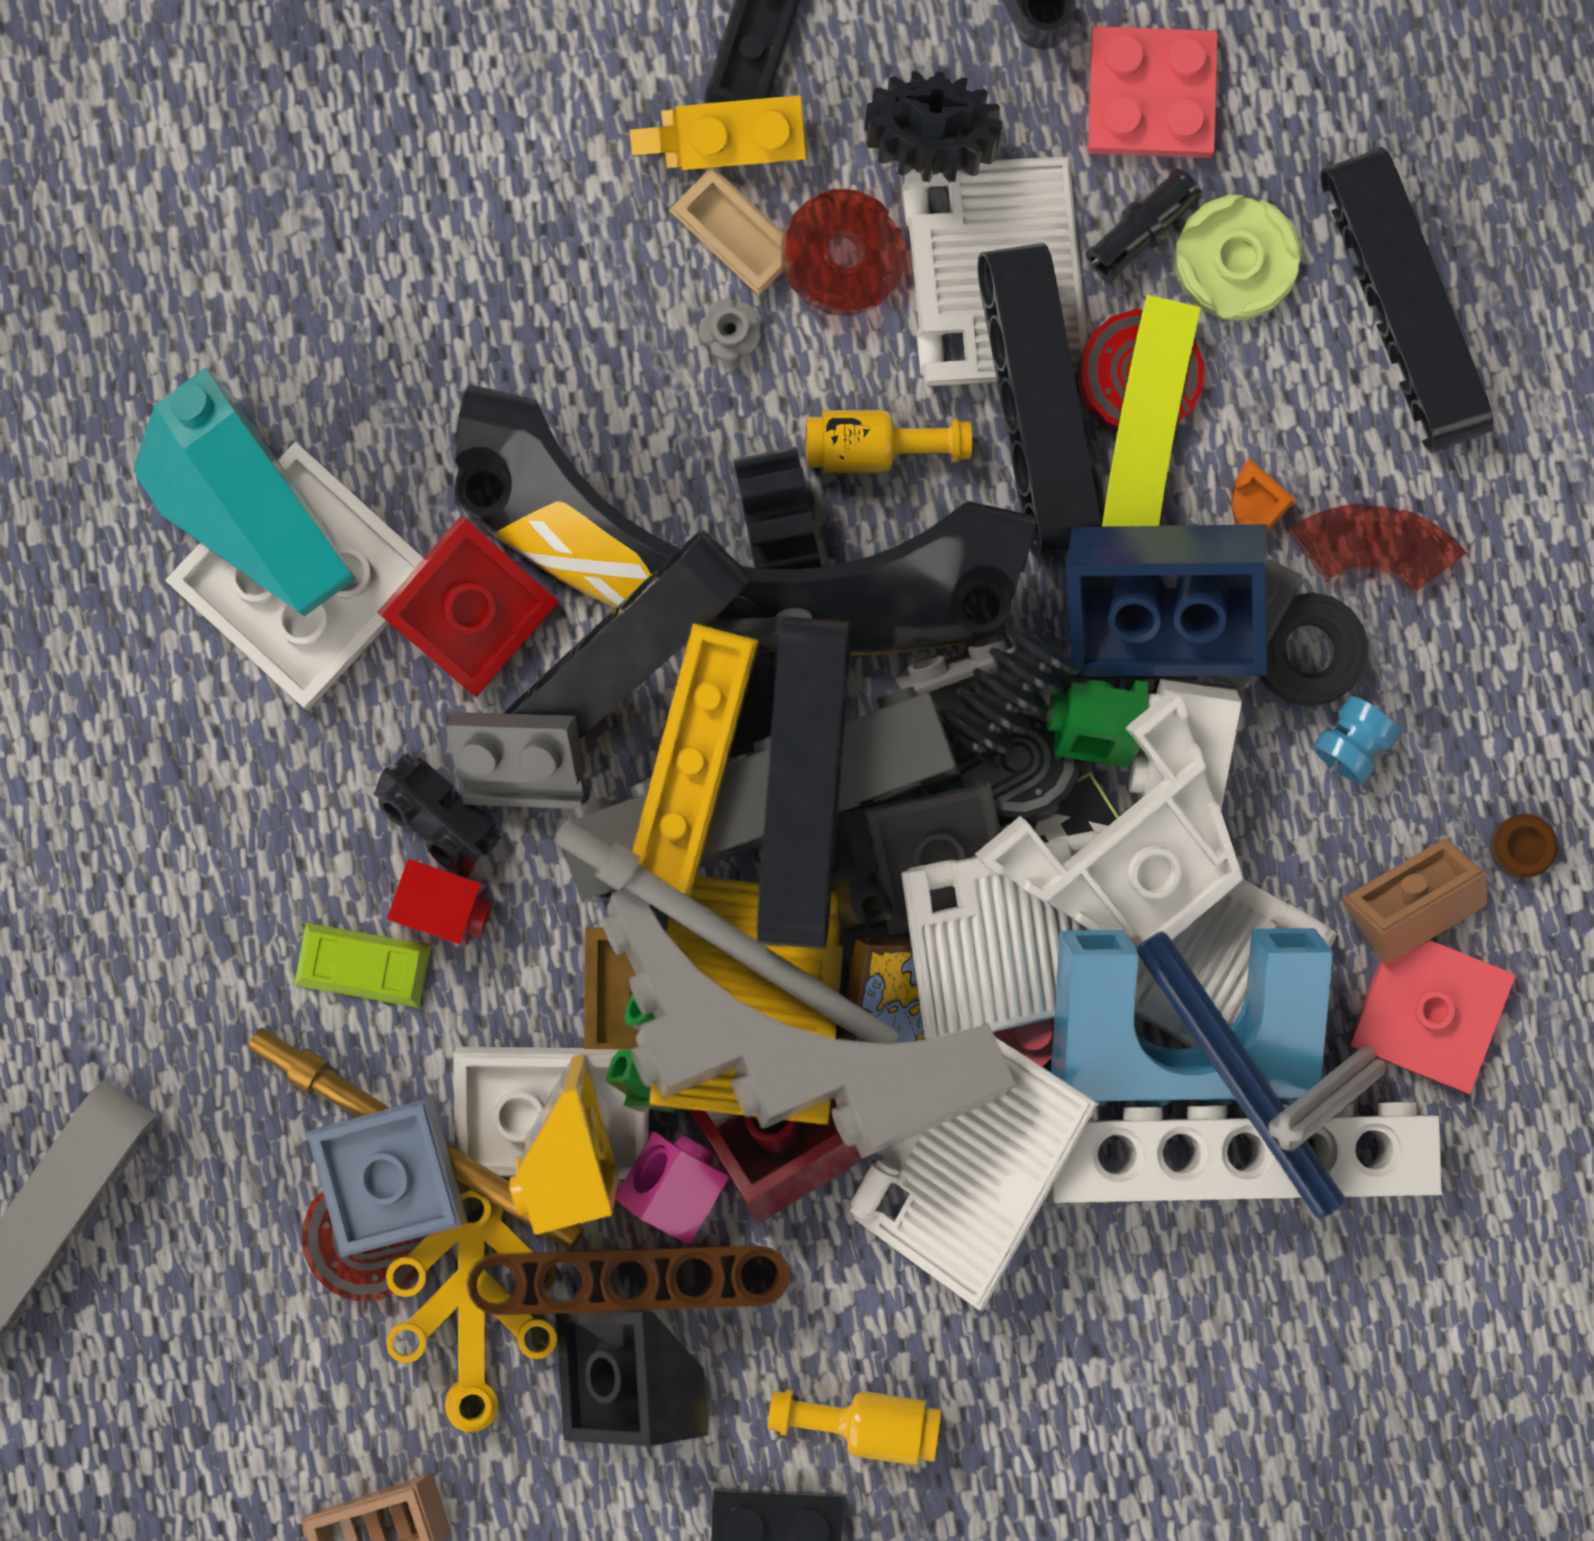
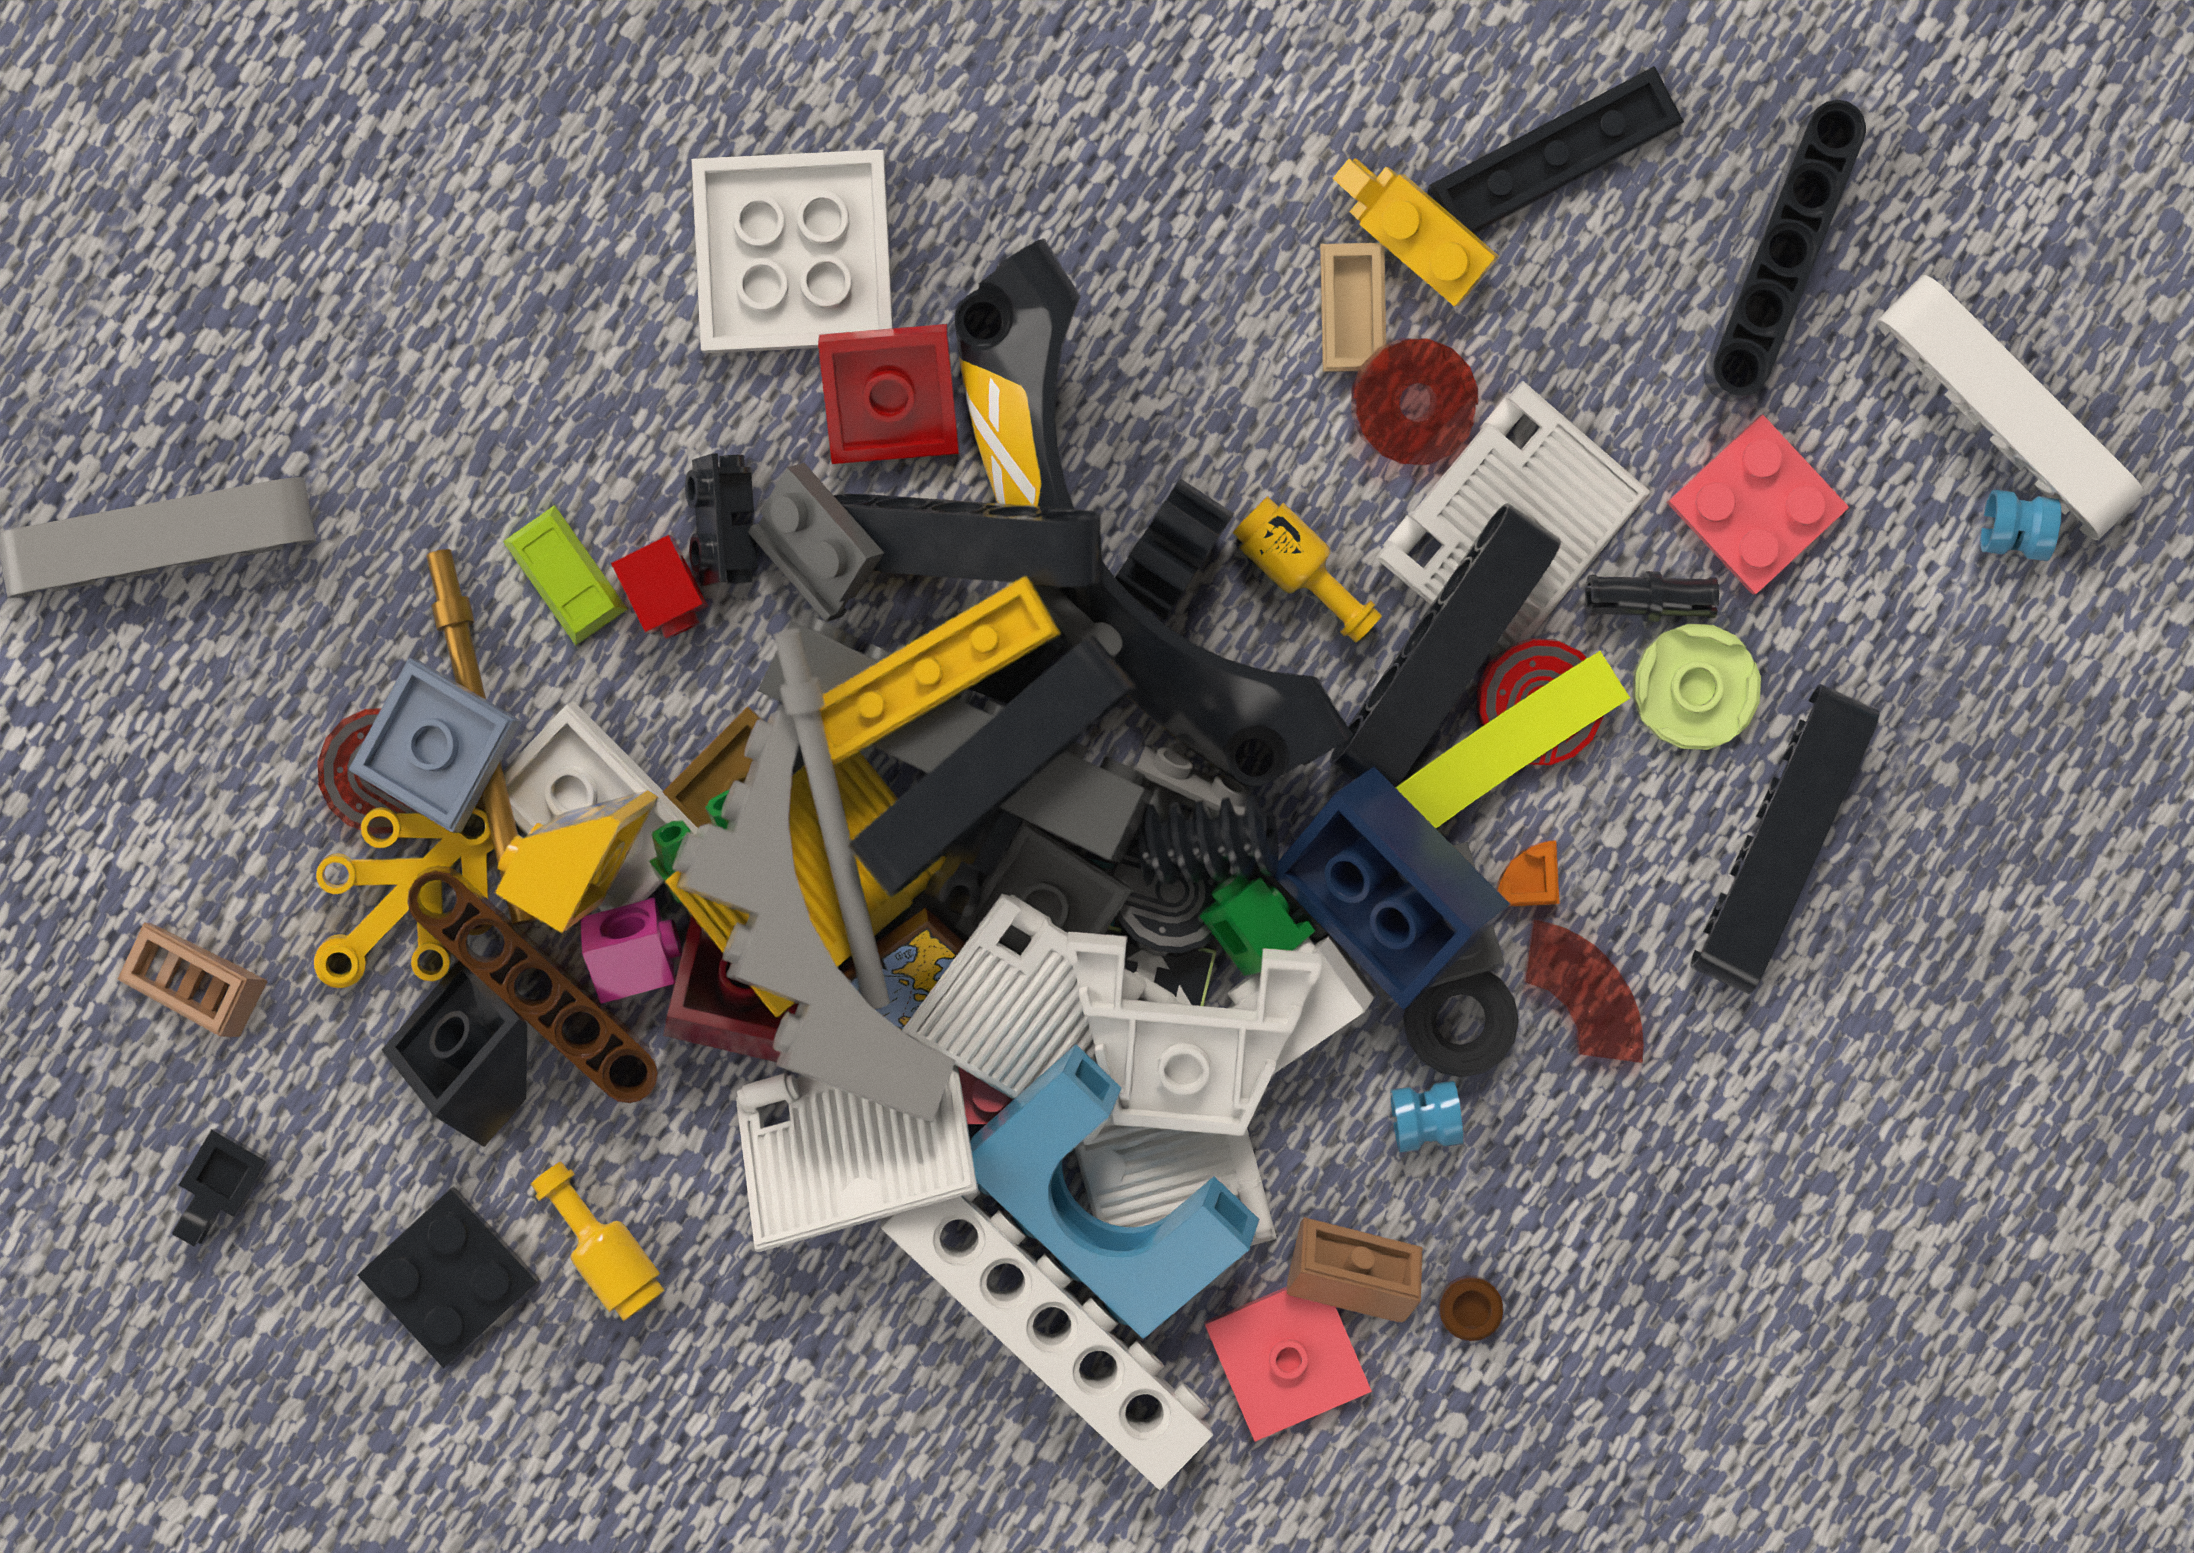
camera: 40 degrees right, 5 degrees up
(230, 493) = (799, 144): teal wedge -> none
(734, 345) = (1277, 393): light grey plate -> none
(933, 126) = (1569, 374): black gear -> none
(1237, 1070) = (1100, 1268): dark blue axle -> none
(1327, 1098) = (1145, 1345): light grey axle -> none

